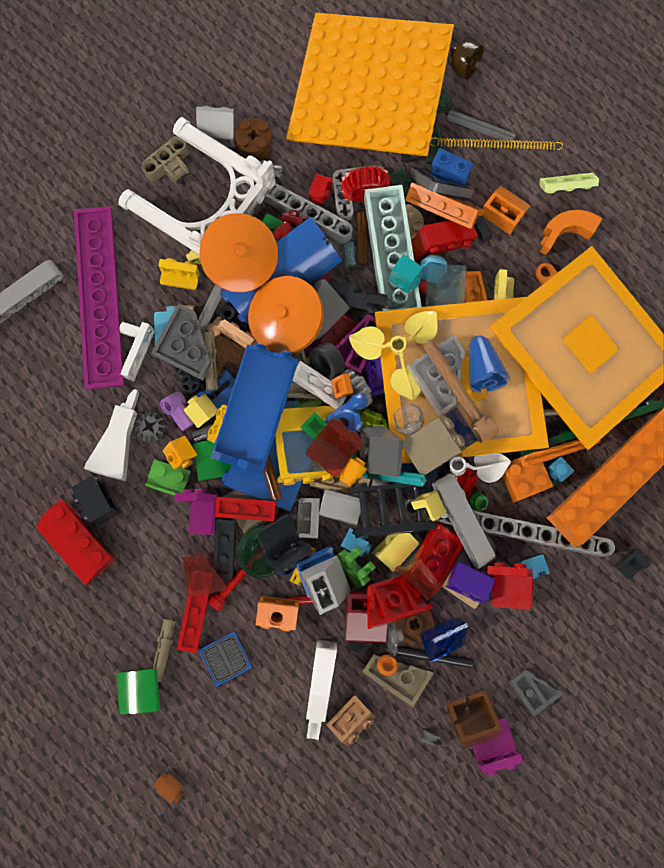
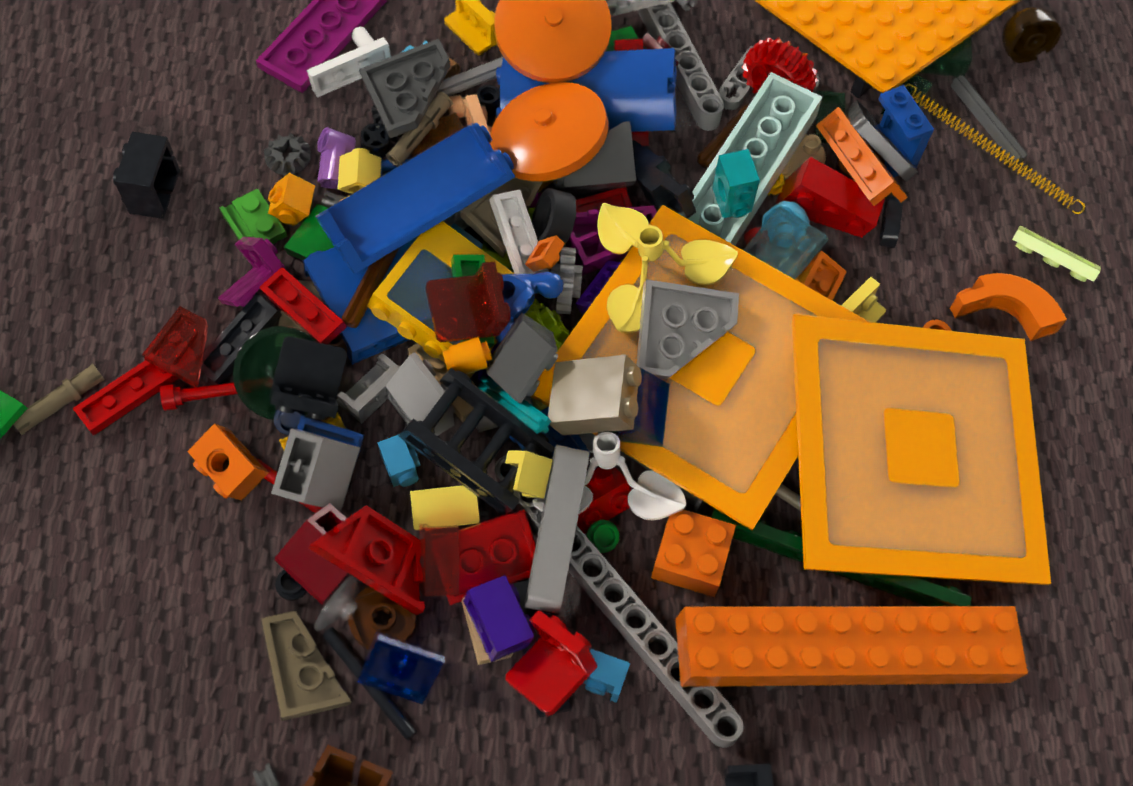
camera: 40 degrees right, 15 degrees down
(74, 541) = (85, 206): red slope -> none
(112, 451) = (223, 143): white piece -> none
(225, 658) = (117, 470): tile -> none
(320, 189) = (721, 49): red brick -> none
(320, 686) = (204, 581): white piece -> none
(349, 254) = (699, 136): clear light blue pin -> none
(351, 721) = (189, 672): medium nougat bracket -> none
(355, 573) = (368, 474): bright green plate -> none
(387, 665) = (298, 634): orange plate -> none
(409, 419) = (591, 344): clear hair -> none
(482, 426) = (681, 425): medium nougat piece -> none
(485, 366) = (745, 360): blue cone -> none
(505, 210) = (939, 224): orange slope -> none
(553, 452) = (766, 550): orange axle -> none
(558, 470) = (745, 579): dark azure brick -> none

